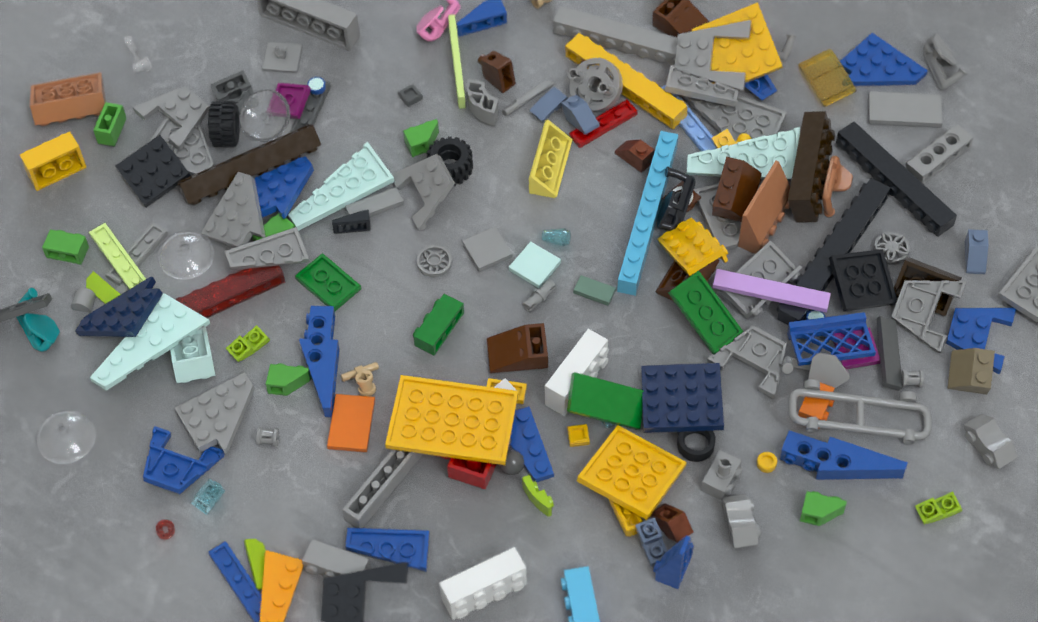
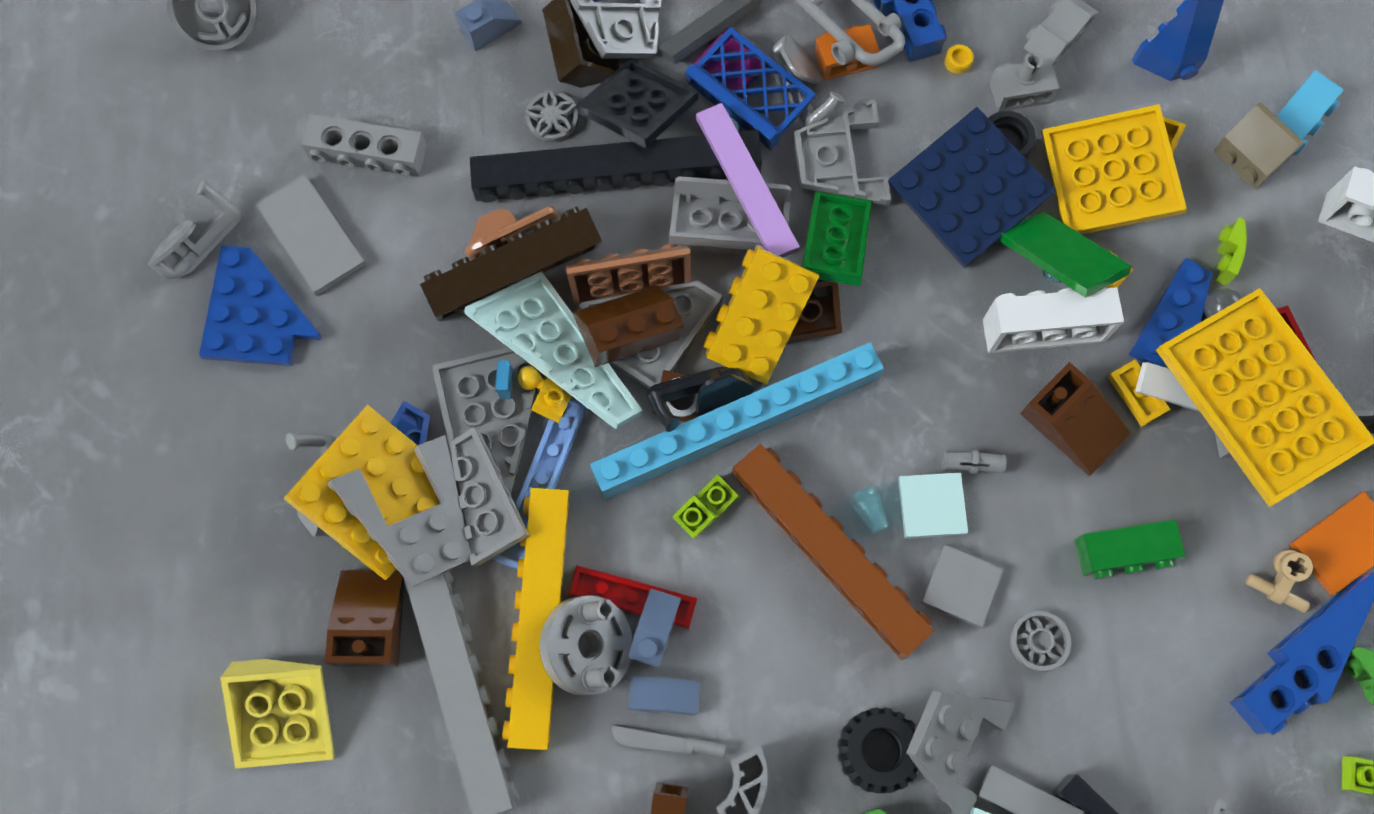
camera: 130 degrees left, 15 degrees up
(328, 282) = (1196, 756): green tile -> none
(549, 161) = (760, 612): light yellow slope -> none
(552, 206) = (832, 552): none -> dark orange brick
(582, 554) = (1258, 146): none -> dark tan slope
(594, 290) = (905, 403): sand green tile -> none
(619, 176) = (706, 506): none -> lime slope
(636, 154) = (654, 511): copper slope -> none
(651, 540) = (1168, 93): sand blue slope -> none
(672, 522) = (1127, 88): copper slope -> none
(751, 128) = (504, 379): none -> dark azure tile
(827, 77) = (325, 360): clear yellow piece -> none
(902, 183) = (442, 172): black brick -> none

